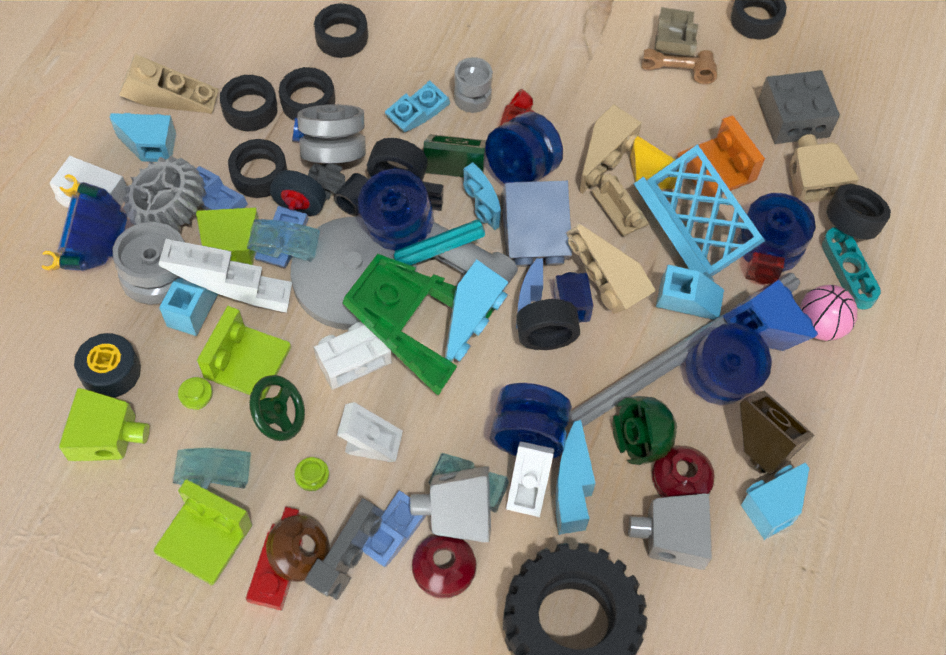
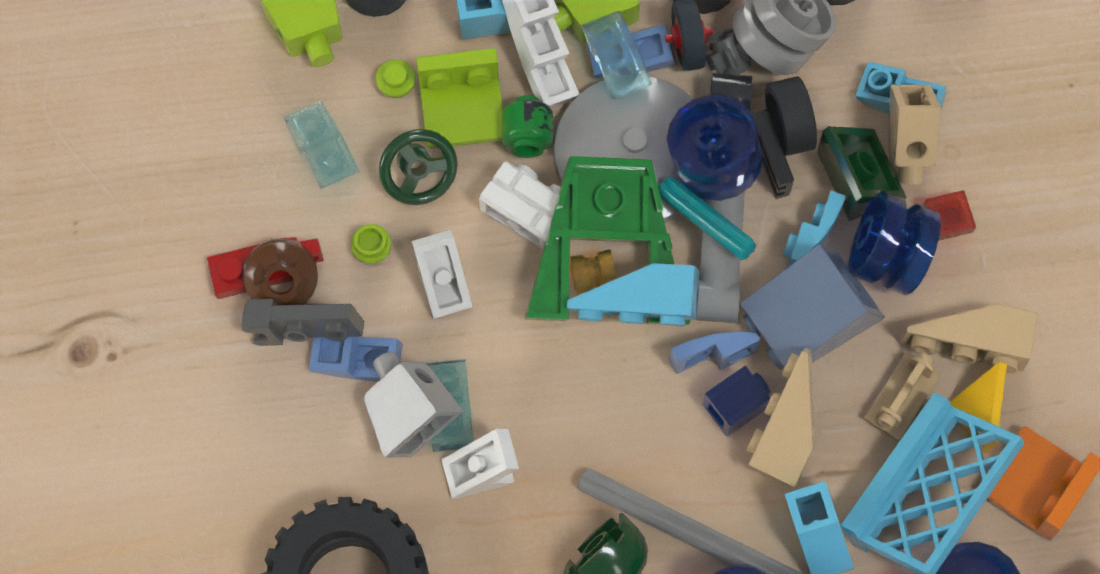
camera: 65 degrees right, 10 degrees up
(203, 533) = (248, 179): lime bracket -> none
(295, 323) = (527, 126): none -> green head
(431, 332) = (583, 271): none -> clear yellow wheel
(449, 581) = (337, 448): dark red piece -> none
(452, 104) = (913, 130): none -> tan torso
(473, 84) = (966, 137): light grey wheel -> none
(522, 99) = (984, 206): red hinge -> none
(531, 416) = (547, 427): clear blue wheel -> none
(548, 324) = (676, 389): black tyre -> none
(574, 483) = (507, 509): medium azure slope -> none

